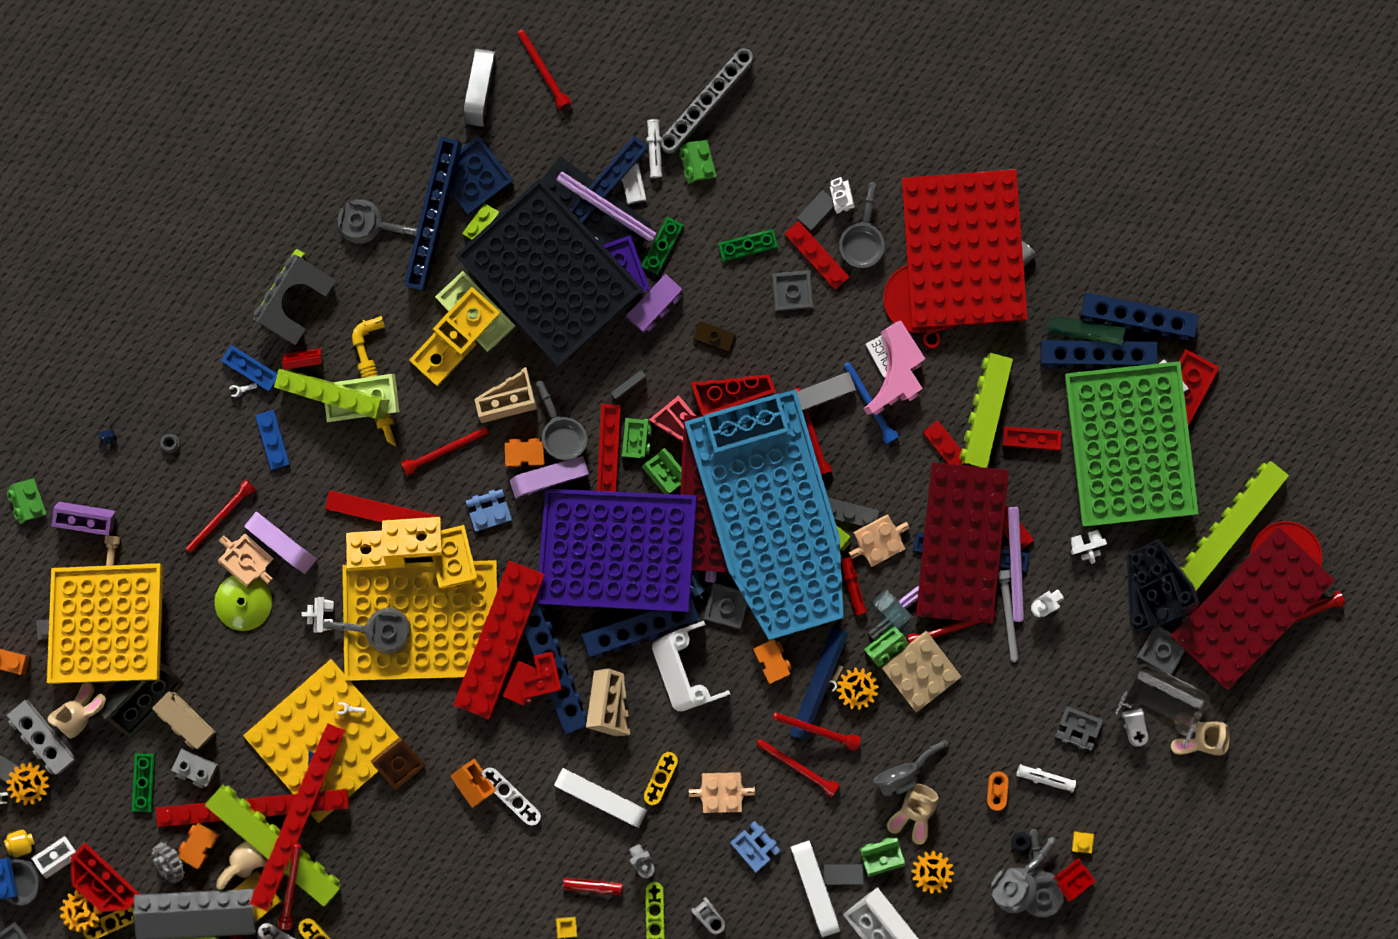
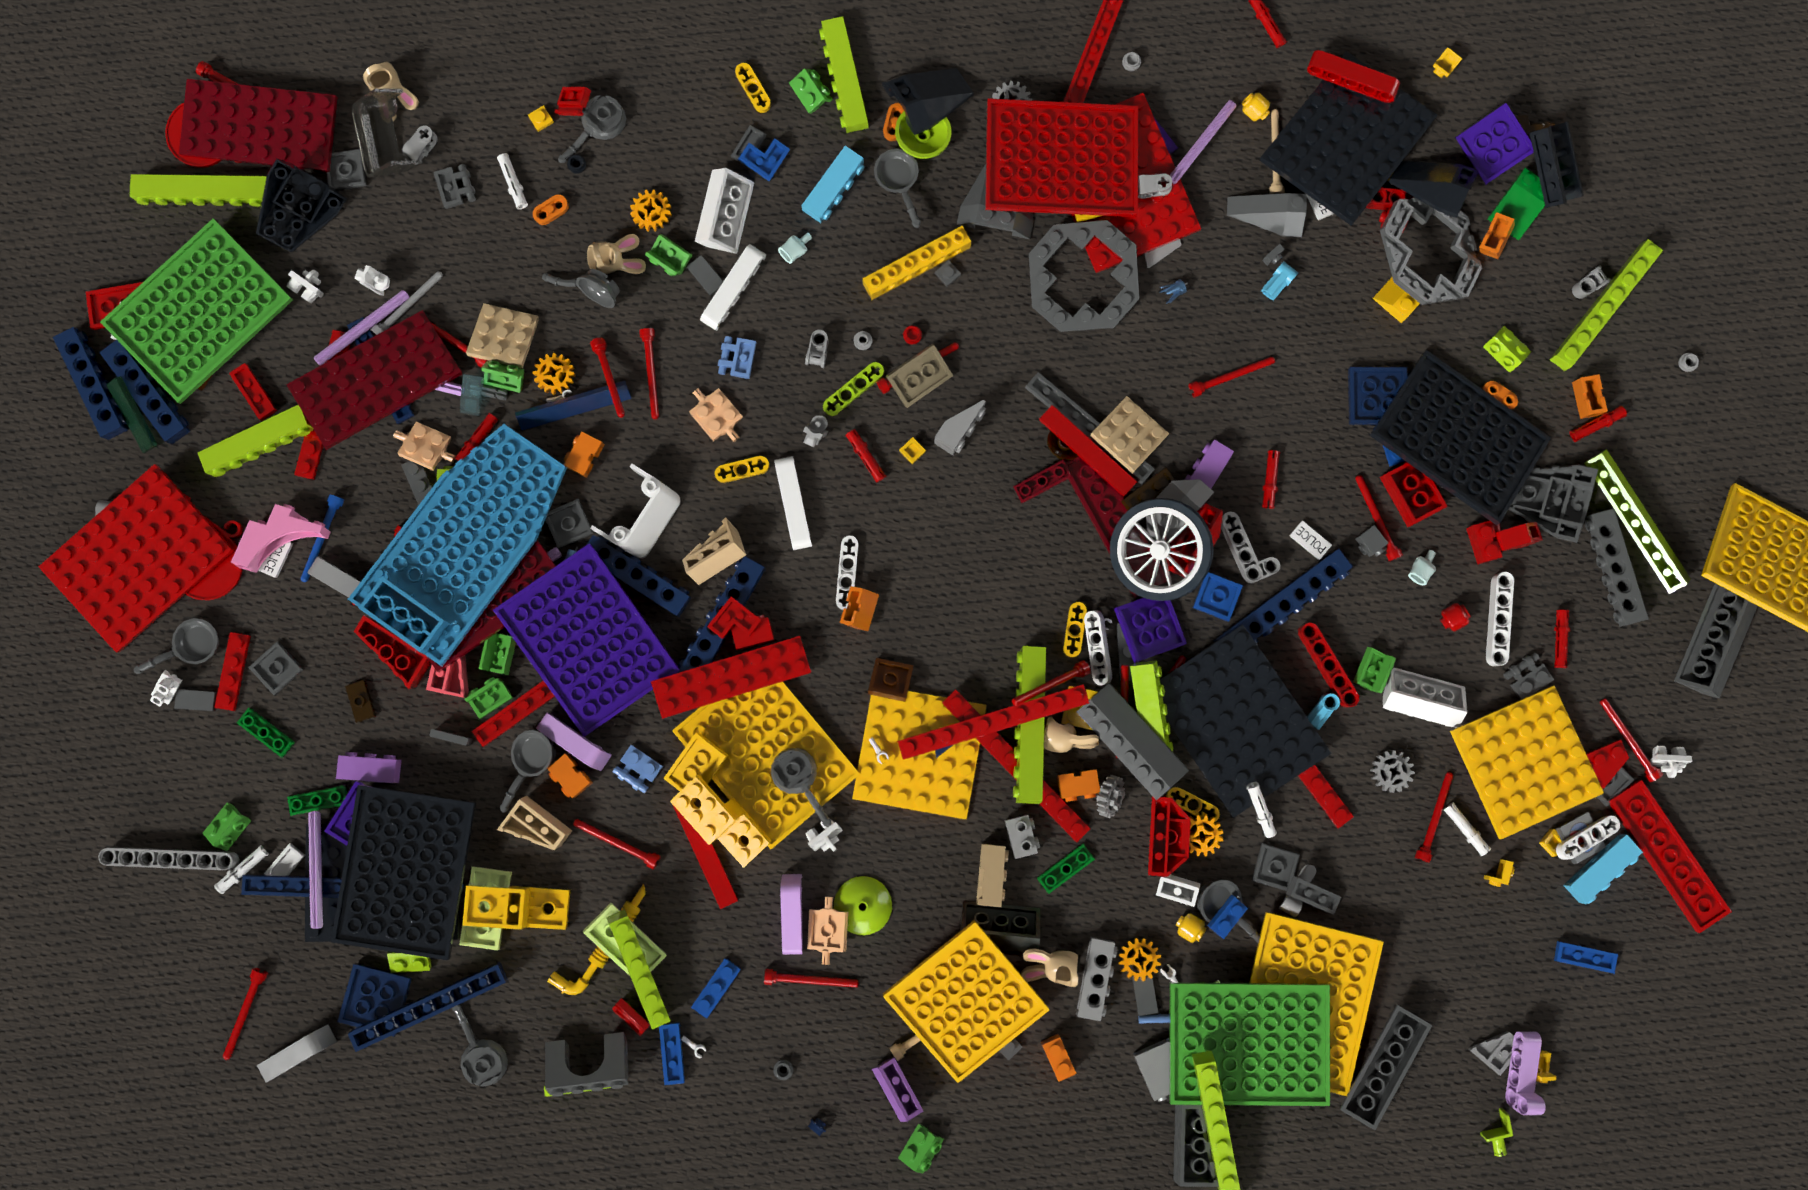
camera: 130 degrees left, 0 degrees up
(1016, 887) = (613, 138): dark grey piece -> none

